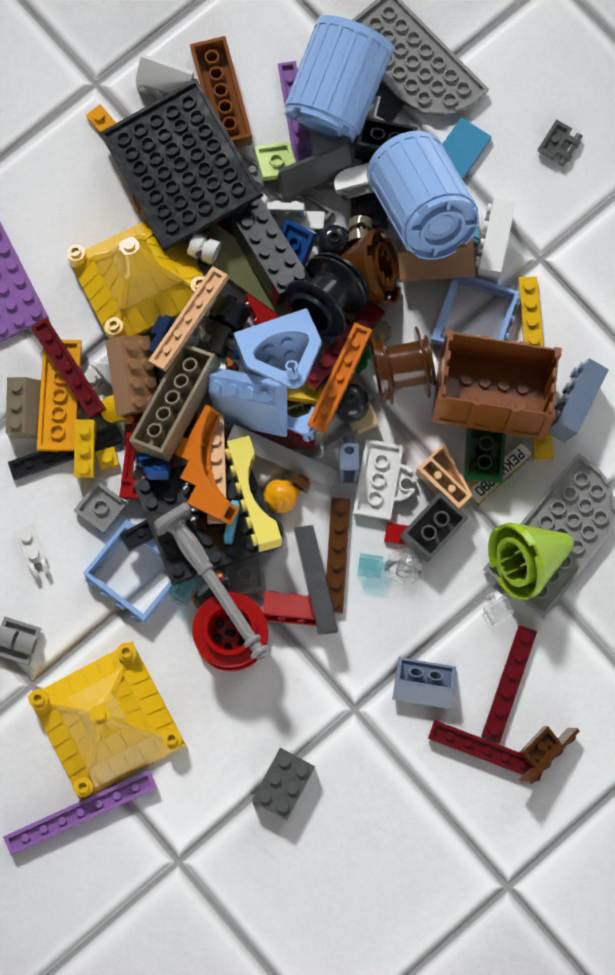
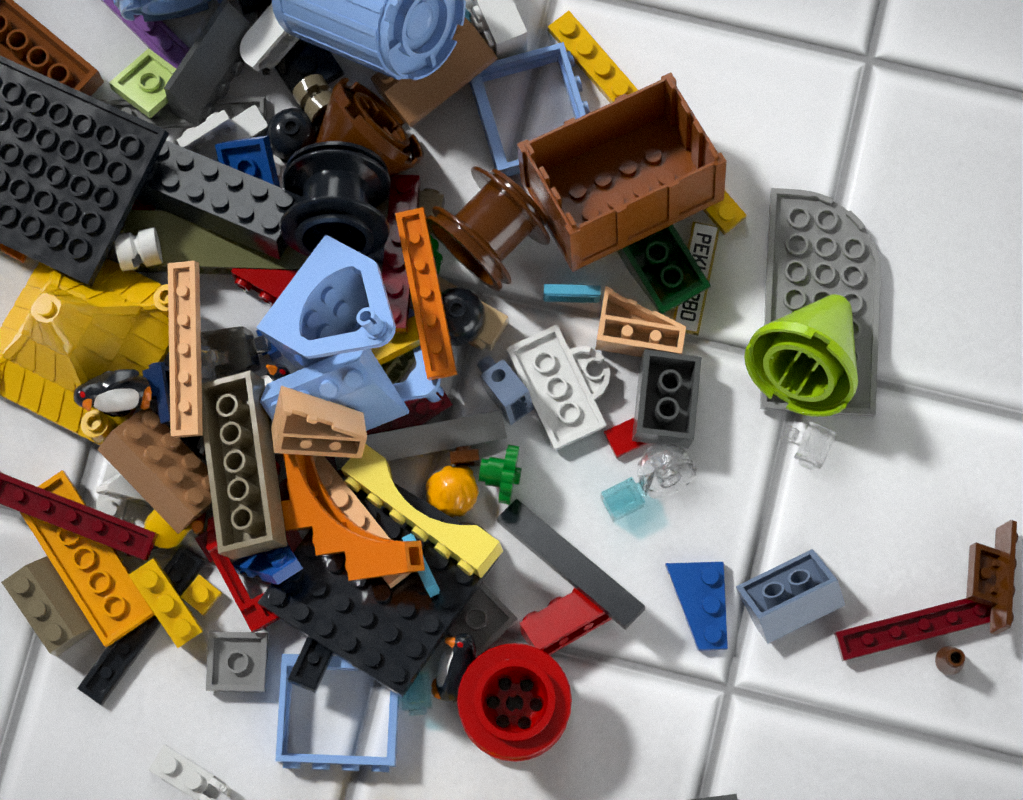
camera: 35 degrees left, 0 degrees up
(135, 316) = (115, 392): none -> animal
(175, 523) = (411, 639): light grey piece -> none
(228, 409) = (316, 427): none -> light nougat wedge
(230, 312) = (228, 307): black brick -> none
(314, 505) = (502, 473): none -> green plant
(337, 551) = (569, 508): reddish brown plate -> none
(374, 652) = (702, 598): none -> blue wing
(424, 434) = (572, 293): none -> medium azure tile
(482, 782) = (944, 661): none -> reddish brown cone
(509, 683) = (890, 524): dark red plate -> none
(577, 399) = (728, 120): sand blue brick -> none

